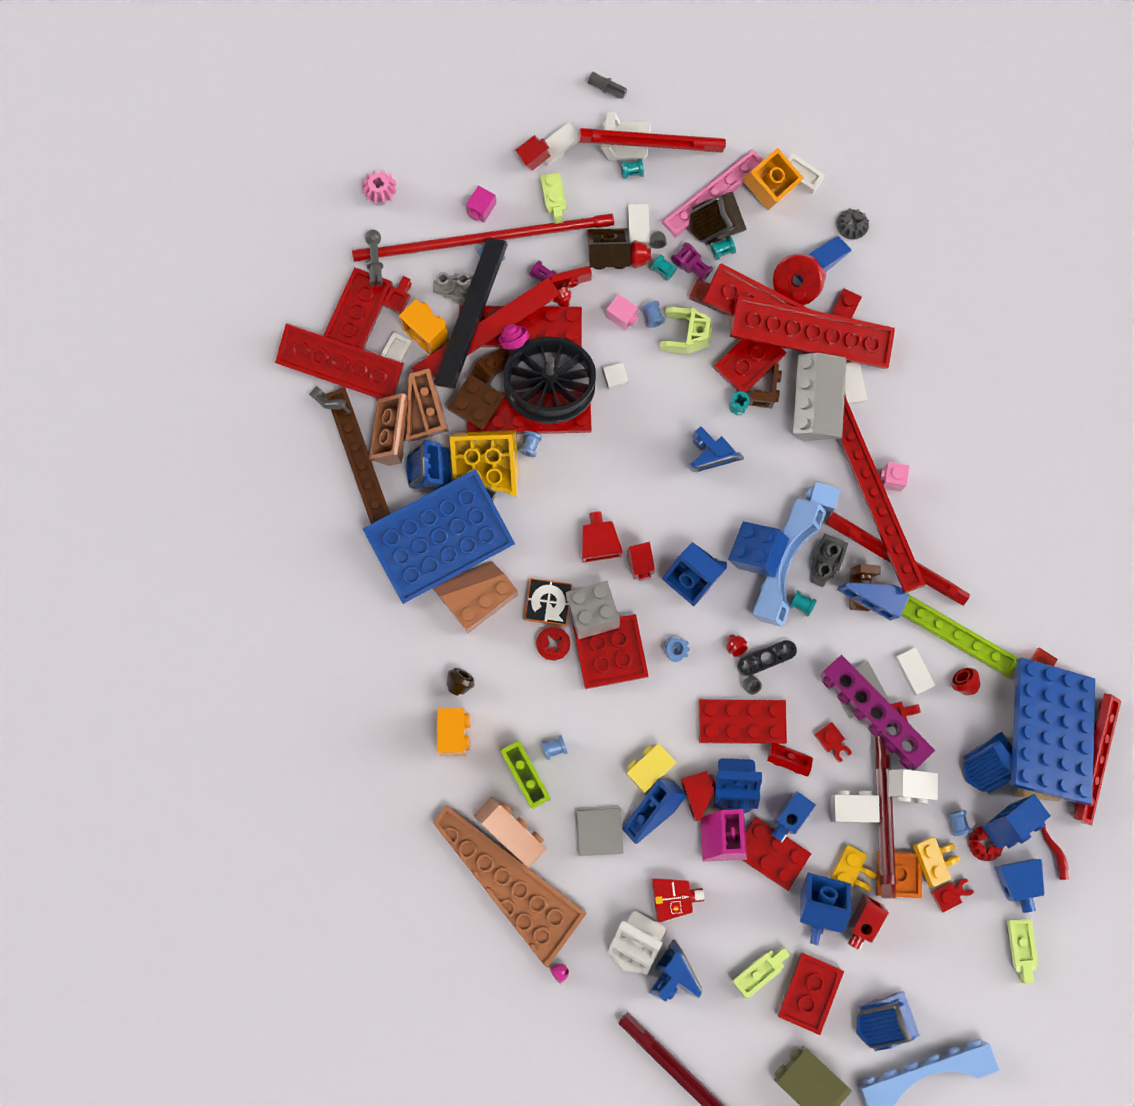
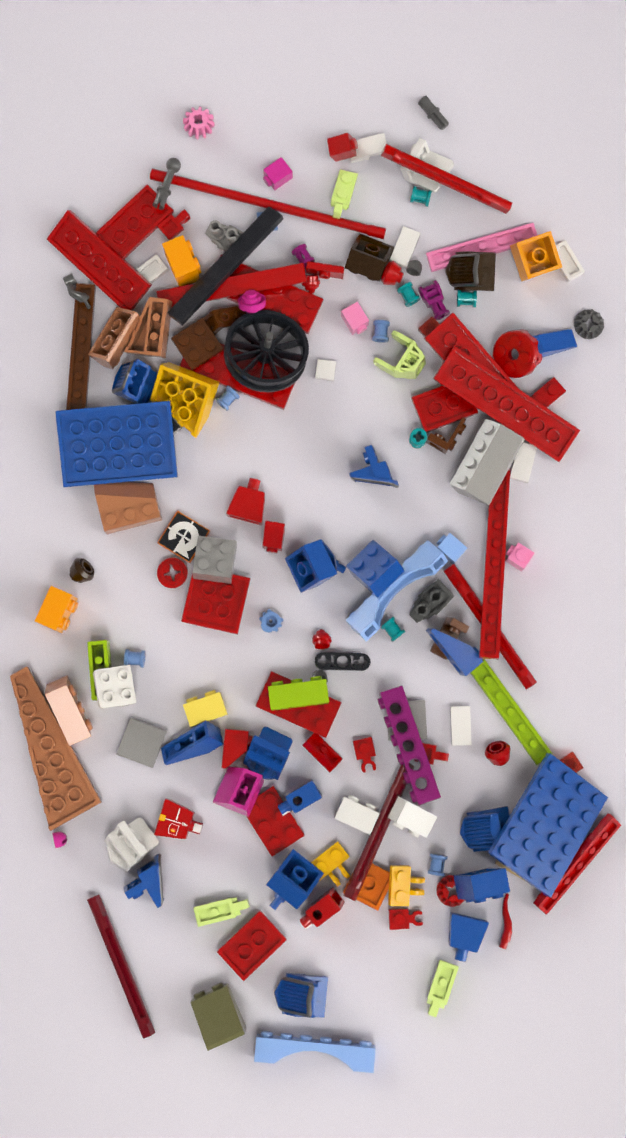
camera: 25 degrees right, 5 degrees up
(549, 785) = (114, 687): none -> white bracket
(740, 709) = (298, 693): none -> lime brick

